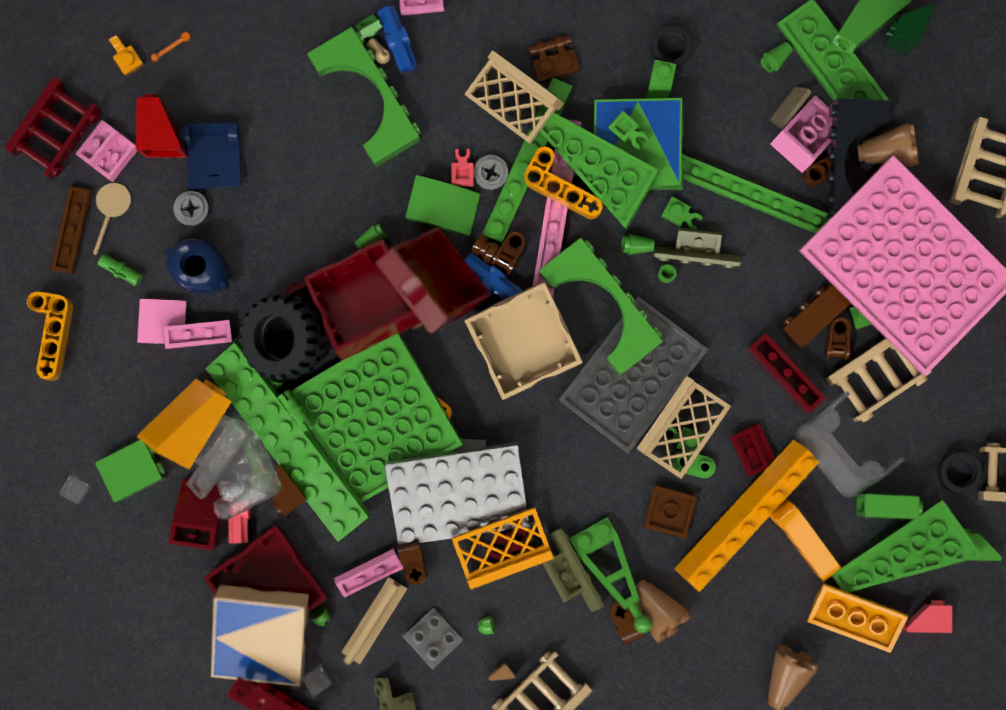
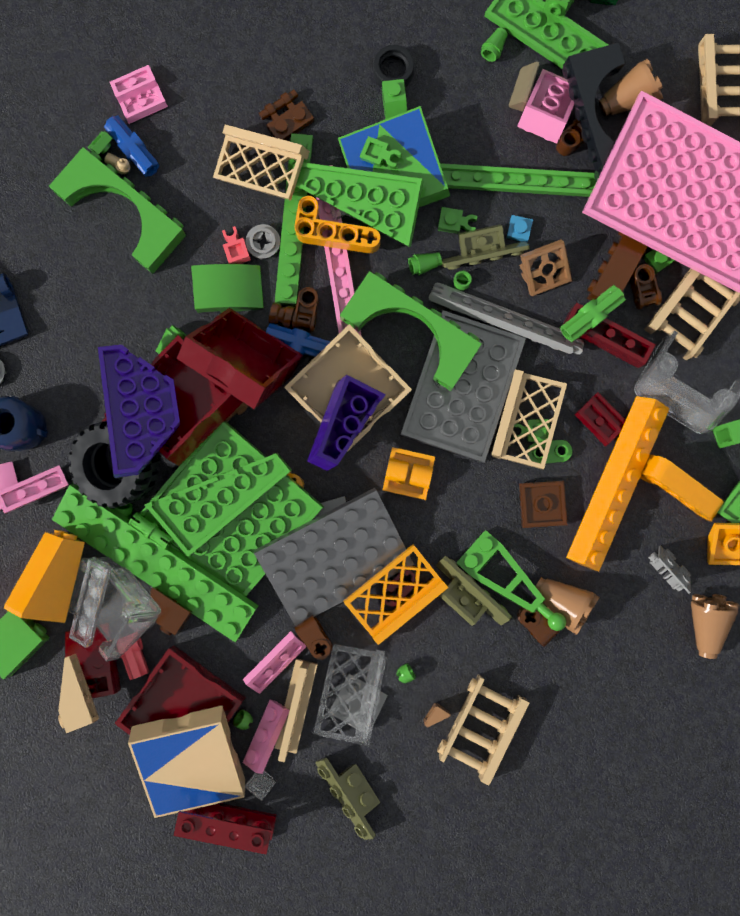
camera: 20 degrees left, 0 degrees up
(176, 546) = (75, 702): none -> tan slope
(324, 297) = (138, 409): none -> dark purple plate
(337, 638) = (266, 736): none -> bright pink plate
(352, 408) = (207, 507): none -> bright green wing
(446, 635) = (370, 696): none -> clear fence
(509, 369) = (343, 420): none -> dark purple wedge
(553, 439) = (408, 473): none -> light orange plate
(695, 324) = (503, 318): none -> light grey hinge
(739, 242) = (519, 228): none -> dark azure plate
(763, 303) = (563, 277): none -> medium nougat piece
(774, 622) = (677, 576): none -> light grey hinge
(775, 349) = (592, 313): none -> bright green piece

